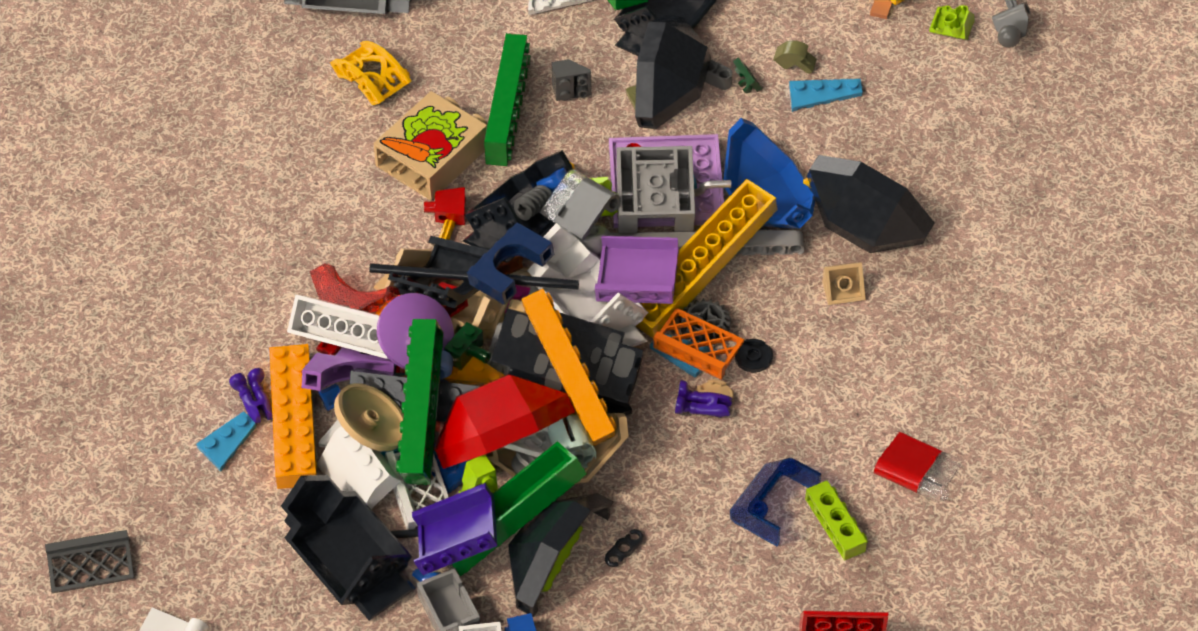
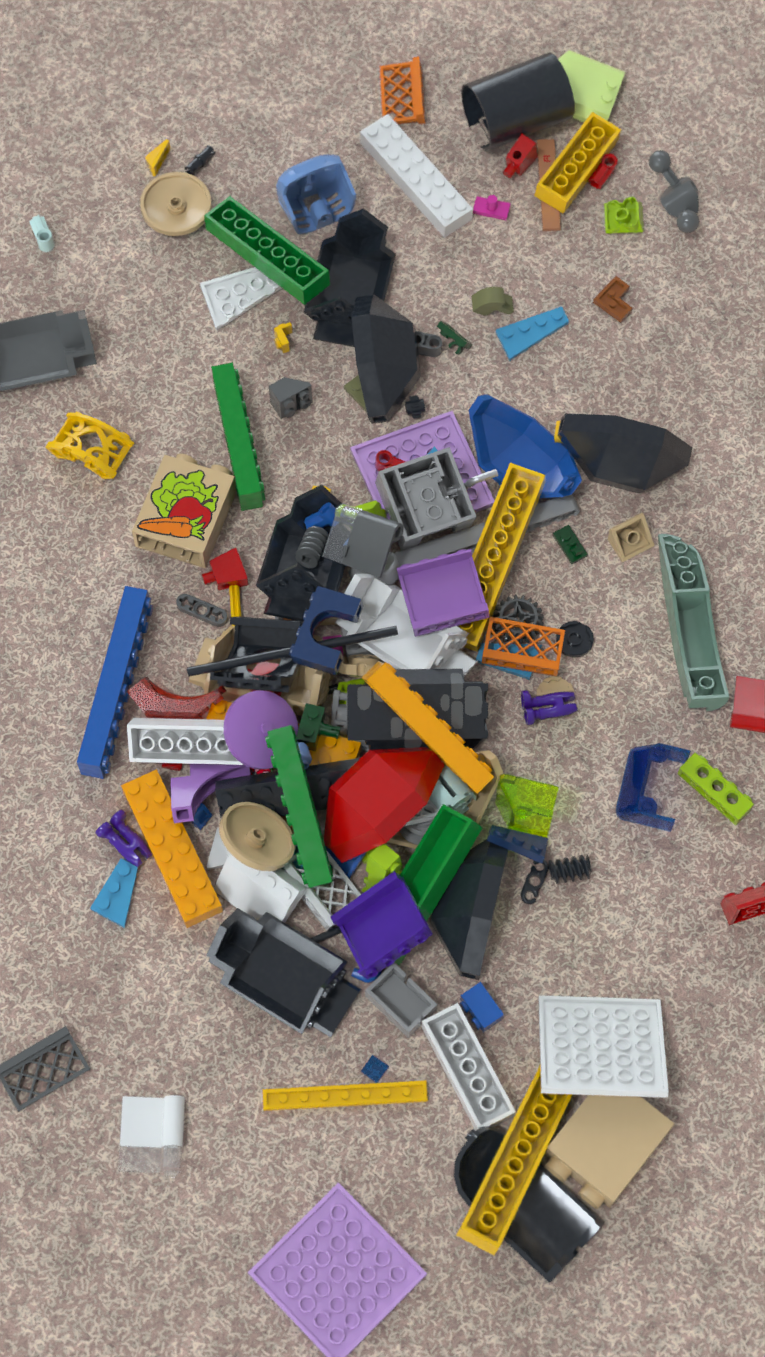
camera: 20 degrees left, 15 degrees up
(292, 274) = (114, 683): none -> blue brick
(408, 226) = (200, 603): none -> dark grey beam
(586, 30) = (280, 336): none -> yellow bracket
(620, 504) = (519, 842): none -> dark blue wing
(638, 452) = (526, 804): none -> clear neon green windscreen
(662, 546) = (569, 868): none -> black piece
(684, 122) = (415, 406): none -> black gear
(783, 275) = (570, 544): none -> dark green plate
(871, 371) = (691, 624): none -> sand green slope
(910, 86) = (610, 299): none -> dark orange plate

